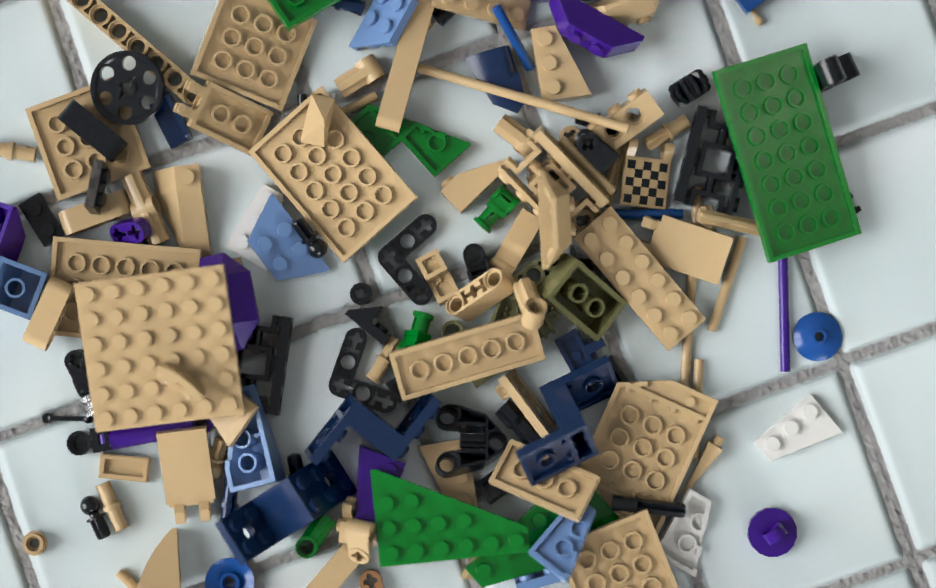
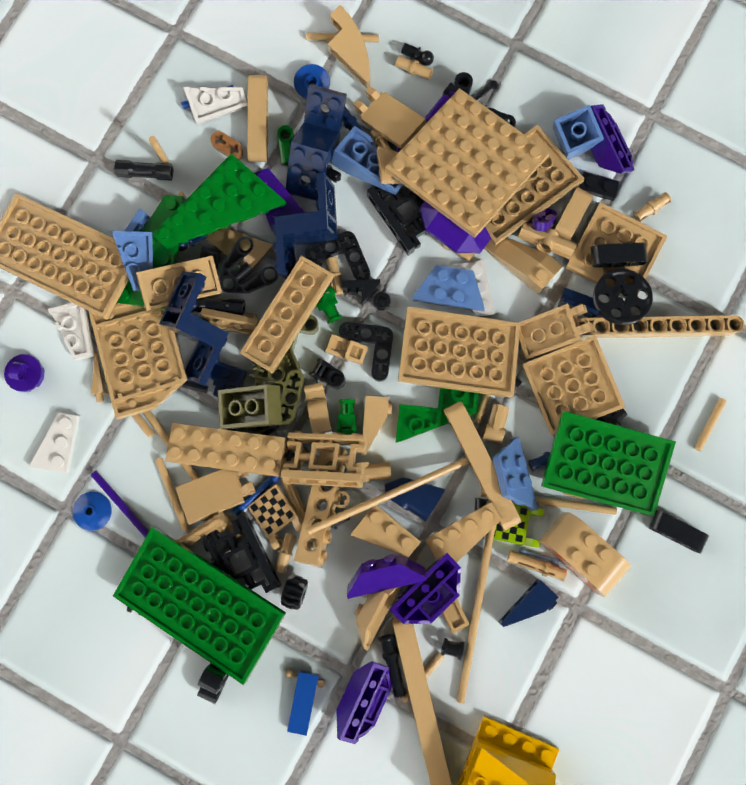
camera: 140 degrees right, 5 degrees down
(27, 545) = (438, 9): tan plate -> none
(49, 313) = (546, 133): tan beam -> none
(96, 193) = (586, 224): black plate -> none
(124, 467) = (426, 94): tan tile -> none
(171, 376) = (445, 148): tan slope -> none
(316, 247) = (430, 302): black axle -> none
(318, 120) = (496, 374): tan slope -> none
(348, 511) = (275, 166): tan plate -> none
(360, 539) = (258, 160): tan piece -> none
(480, 294) = (310, 358): tan beam -> none
(513, 37) = (427, 528): blue bar -> none
(531, 305) = (276, 374): tan piece -> none
(554, 218) = (305, 438): tan wedge -> none
(586, 165) = (314, 488): tan bar -> none
(598, 153) = (313, 500): black piece -> none
(635, 504) = (101, 325): black axle -> none

